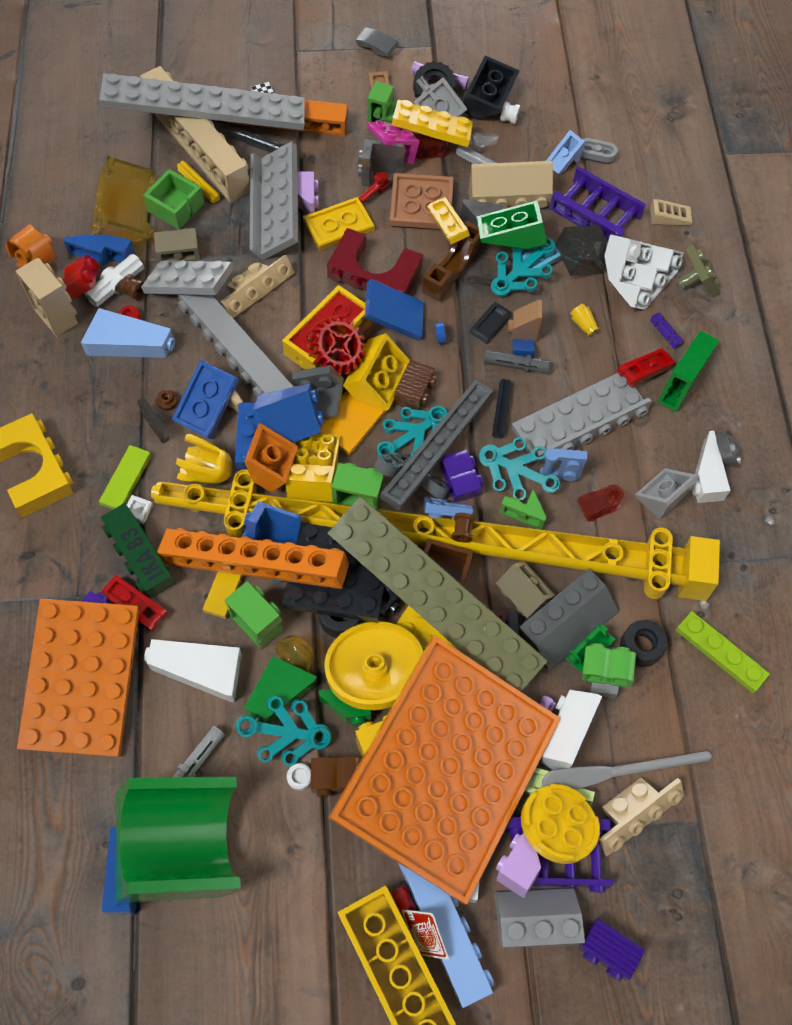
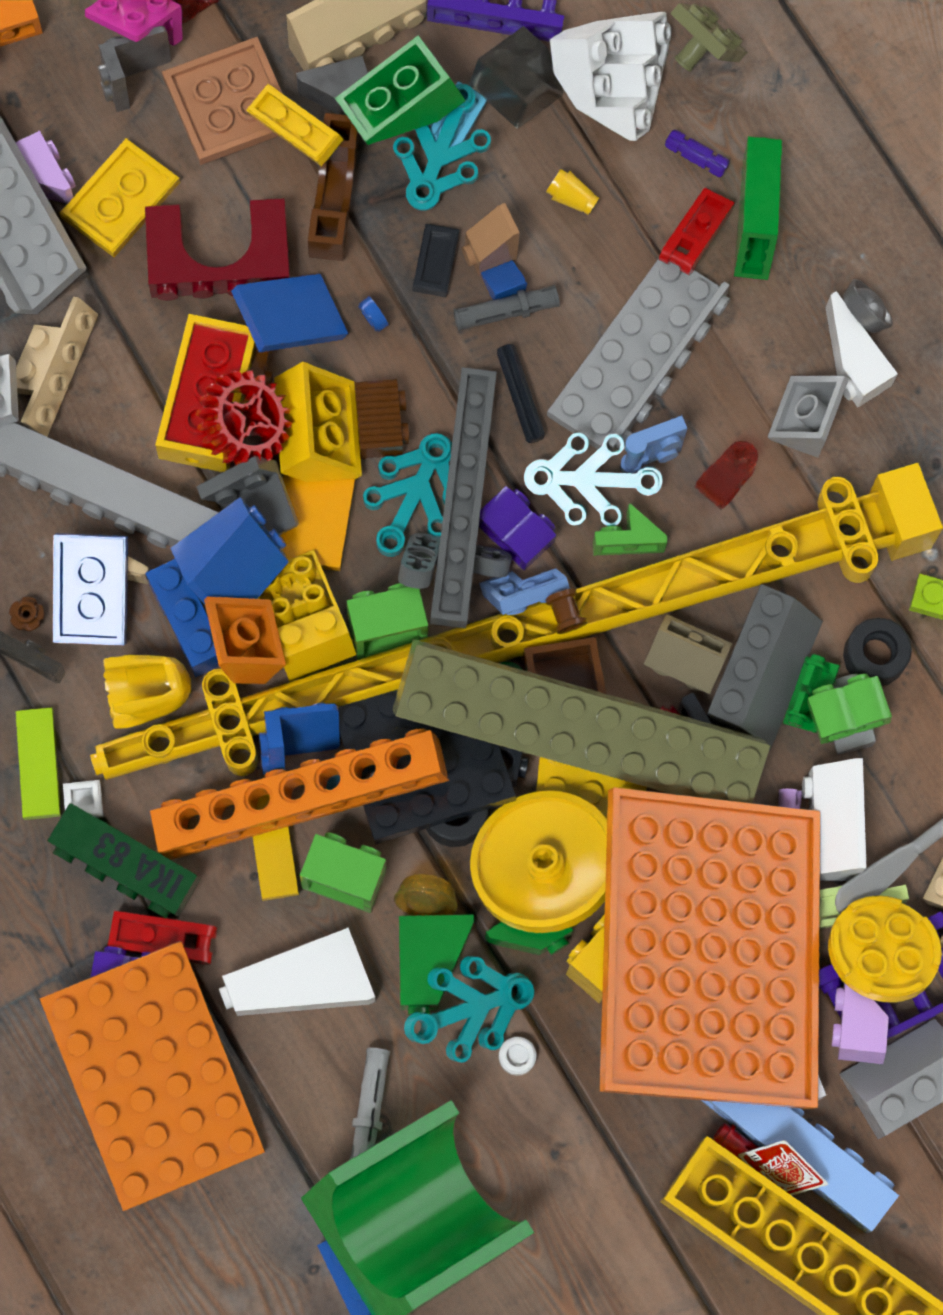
camera: 30 degrees left, 10 degrees up
(332, 774) = (566, 1031): reddish brown brick -> none
(380, 184) = (149, 102): red bar -> none

